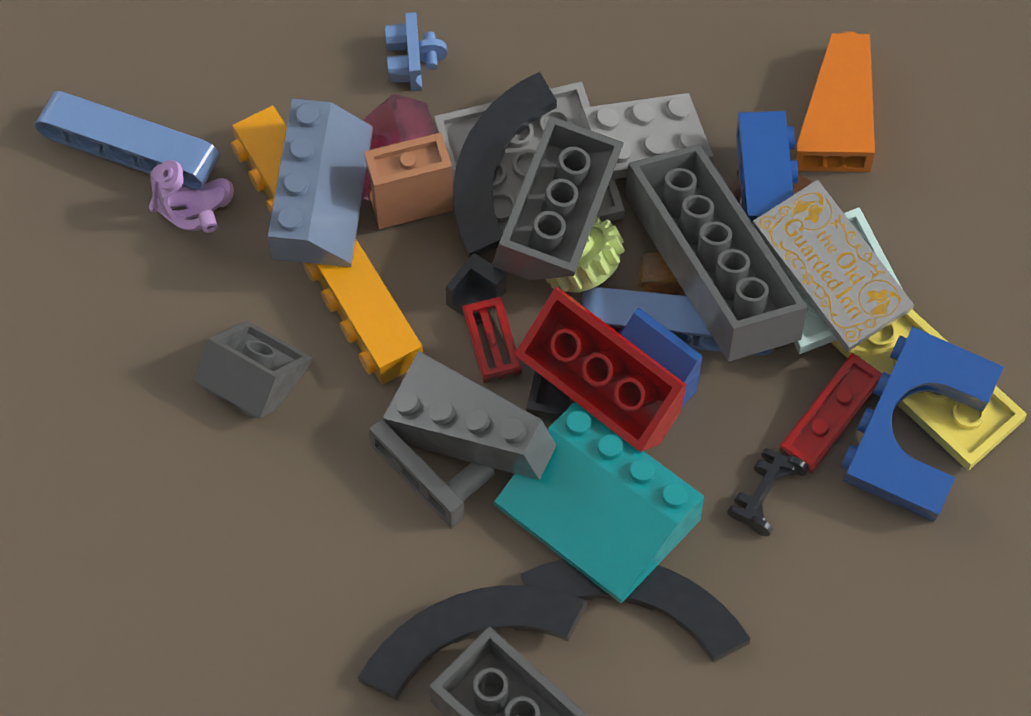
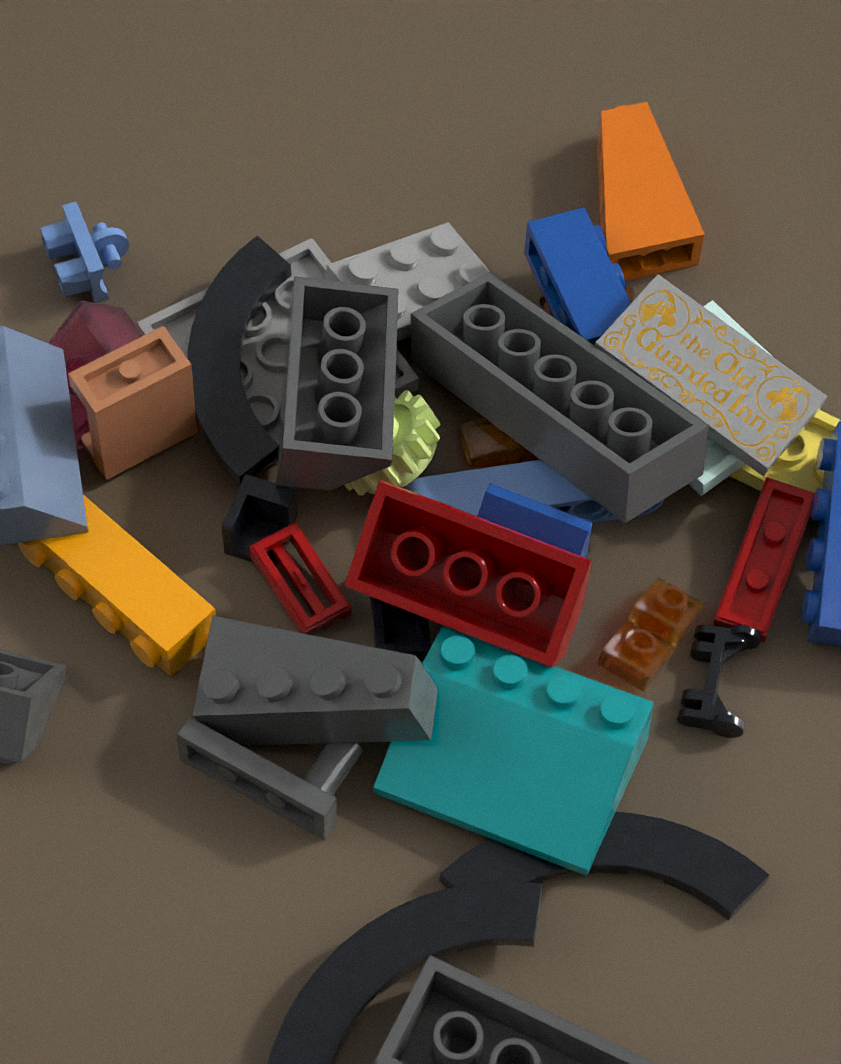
camera: 20 degrees left, 5 degrees down
(730, 446) = (650, 634): none -> clear orange slope

